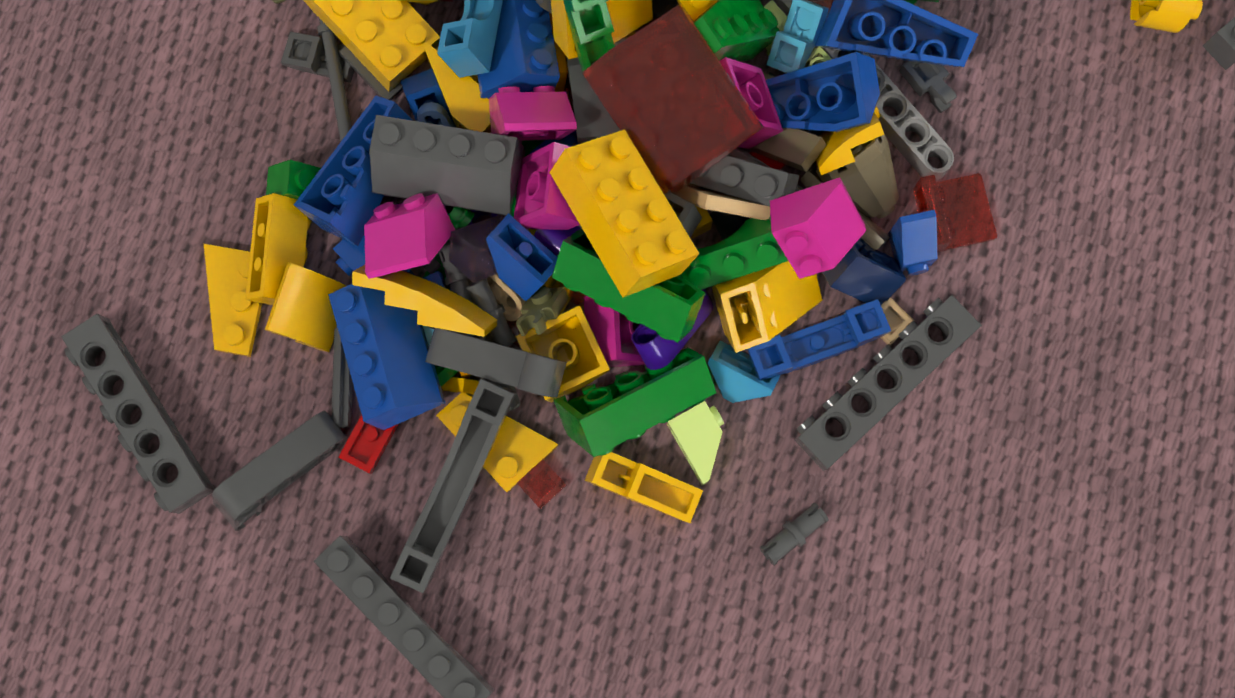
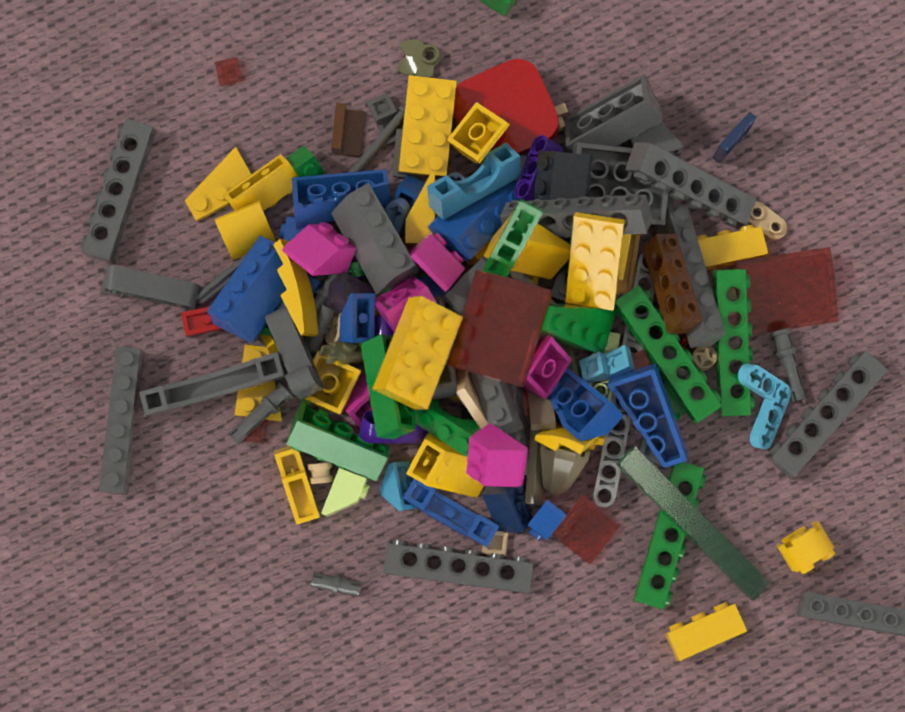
camera: 45 degrees right, 0 degrees up
(112, 183) = (228, 71): none -> clear red tile
(295, 108) = (347, 131): none -> reddish brown panel
(530, 444) = (269, 405): none -> dark grey pin
(654, 448) = (320, 473): none -> tan wheel
(1034, 146) = (645, 593): none -> green brick
(1044, 88) = (693, 523): none -> clear green tile
(1171, 174) = (705, 631): none -> yellow brick

